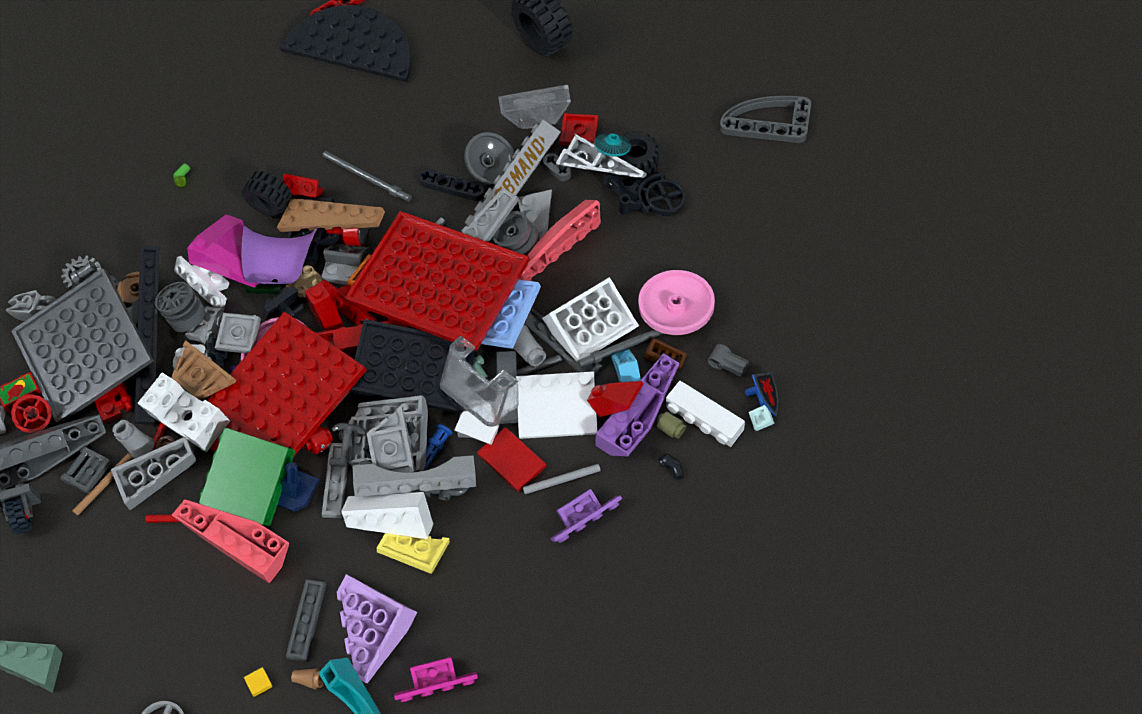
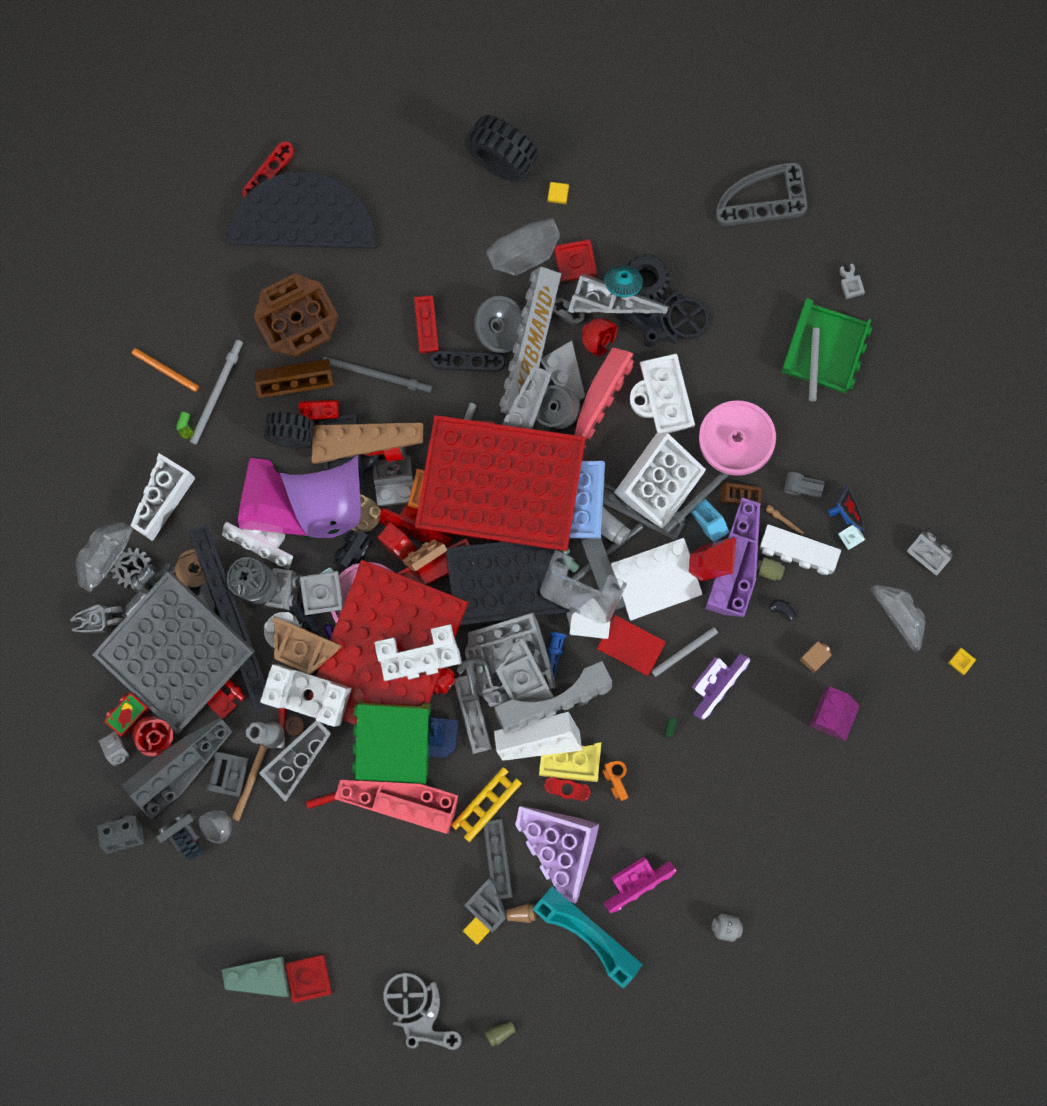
camera: 20 degrees left, 20 degrees up
(53, 510) = (216, 826): none -> clear hat
(58, 253) = (101, 553): none -> clear wedge
(76, 680) = (308, 978): none -> red tile
(133, 223) = (161, 496): none -> white wedge
(185, 130) = (164, 369): none -> orange bar
(245, 134) = (231, 359): none -> light grey bar
(277, 659) = (487, 906): none -> dark grey wing
(290, 158) = (293, 378): none -> reddish brown brick
(300, 404) = (419, 660): none -> white bracket
(310, 573) = (474, 805): none -> yellow bar
(312, 108) = (295, 297): none -> reddish brown piece
(334, 321) = (424, 555): none -> medium nougat plate
(389, 567) = (554, 786): none -> red piece
(425, 146) = (426, 324): none -> red plate
(448, 586) = (618, 789): none -> orange plate
(521, 542) = (670, 728): none -> dark green tile
(577, 188) = (597, 335): none -> red cylinder
(583, 75) = (558, 193): none -> yellow tile
(620, 252) = (663, 395): none -> white plate
(690, 515) = (816, 656): none -> medium nougat brick
(690, 570) = (835, 713): none -> magenta slope
(694, 381) = (776, 514): none -> medium nougat piece
(771, 261) = (814, 364): none -> light grey bar
(787, 250) = (839, 347): none -> green panel
(790, 498) = (903, 613): none -> clear wedge
(828, 204) = (851, 285): none -> light grey plate
(835, 451) = (930, 552): none -> light grey bracket
(839, 562) = (962, 661): none -> yellow tile

